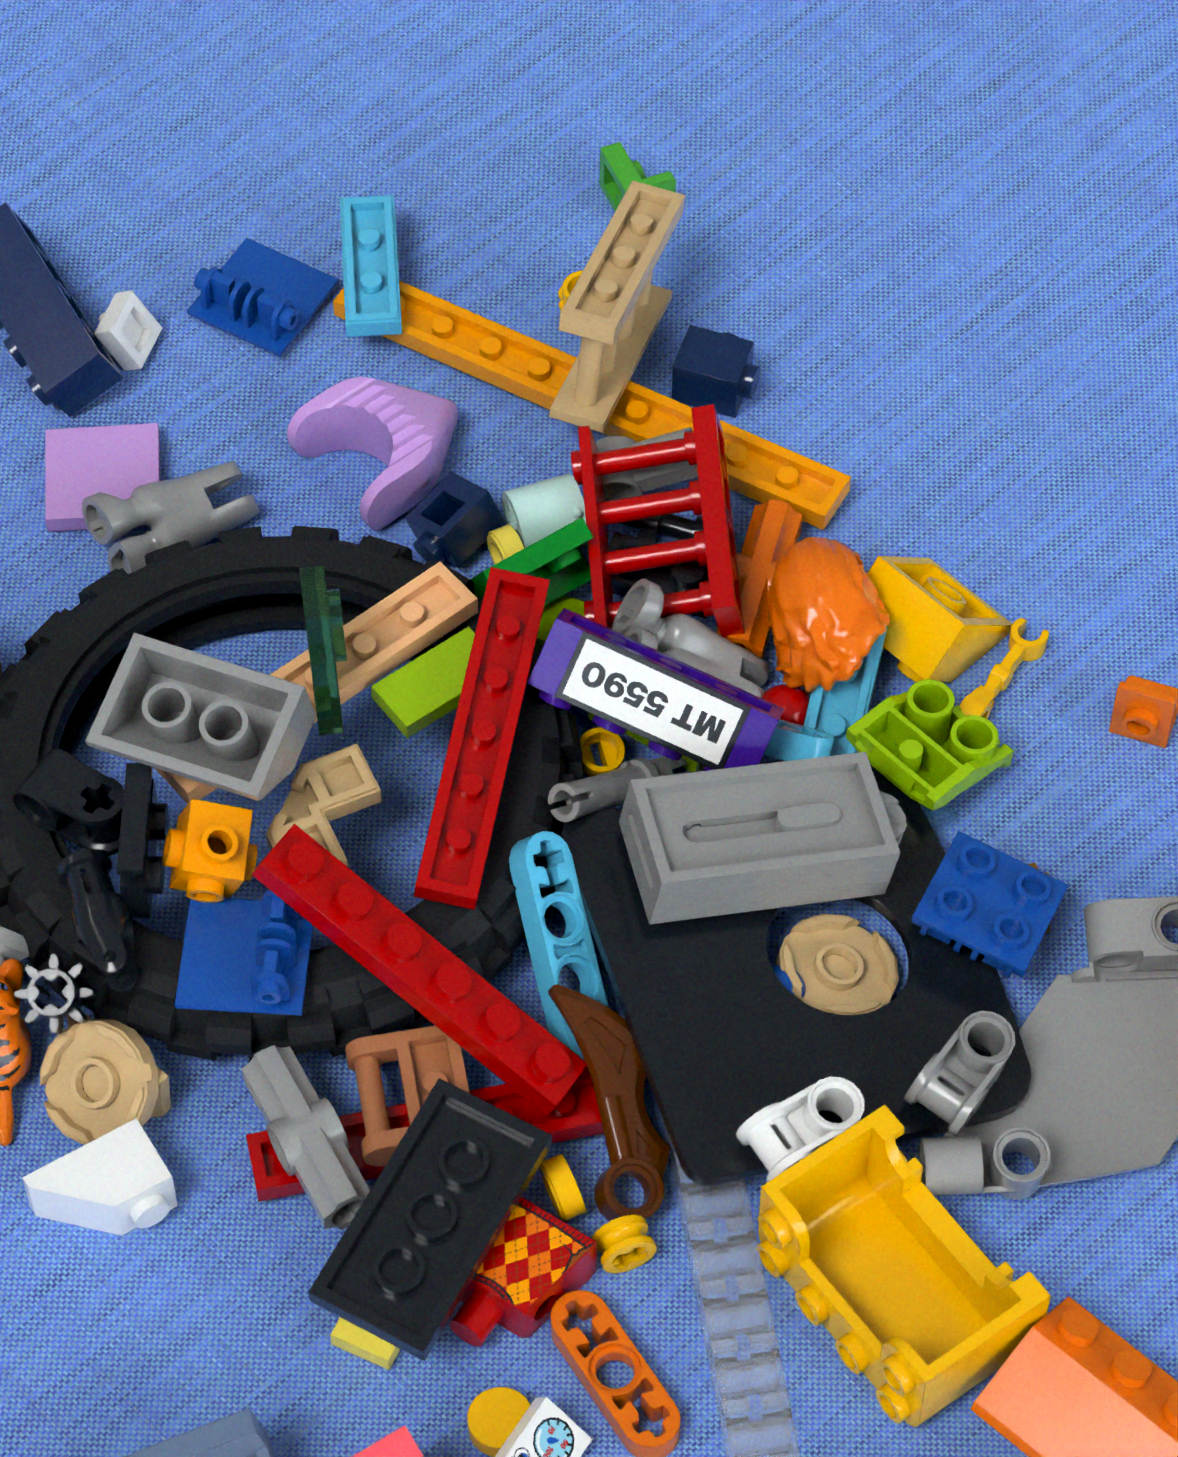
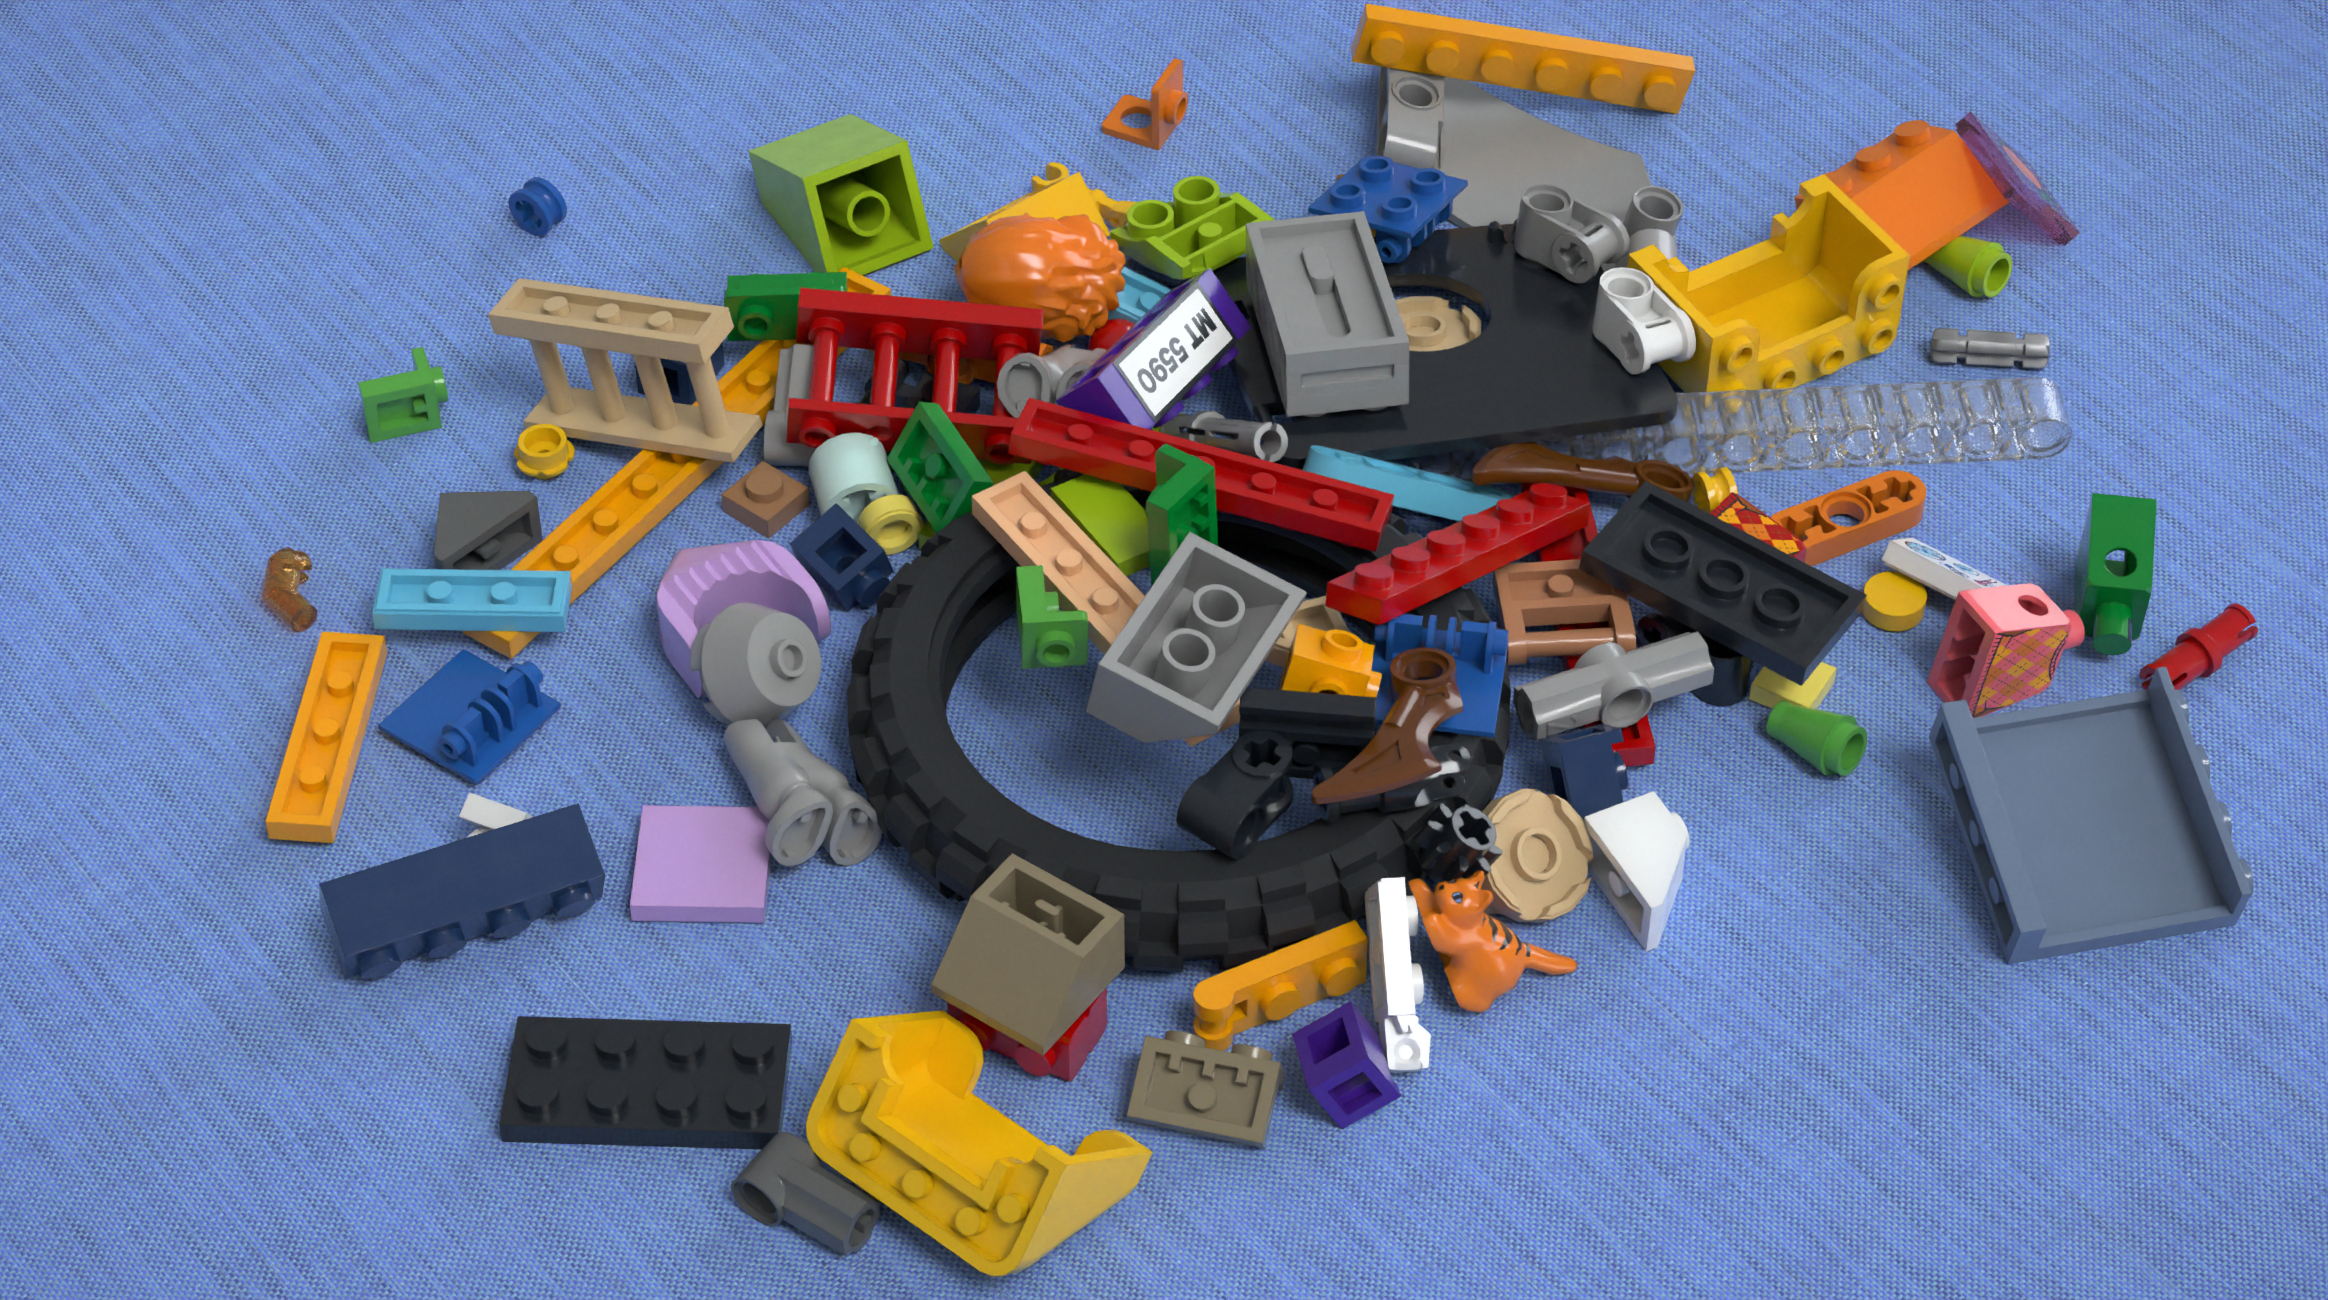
camera: 85 degrees left, 10 degrees down
(89, 901) = (1400, 747): none -> reddish brown piece
(206, 1122) = (1586, 768): none -> dark blue brick
(227, 205) = (326, 737): none -> light orange plate
(278, 630) = (1044, 633): none -> bright green bracket
(287, 1345) = (1820, 737): none -> bright green cone
(295, 463) = (755, 663): none -> light grey cone
(325, 645) = (1104, 546): clear green wing -> none
(390, 716) = (1179, 505): none -> green bracket
(397, 150) = (281, 585): none -> clear orange arm
(456, 260) = (485, 529): none -> dark grey slope
(542, 459) = (765, 499): none -> medium nougat plate
(773, 433) = (768, 303): none -> green bracket
(905, 241) = (537, 206): none -> blue bush
(951, 461) = (844, 195): none -> lime slope

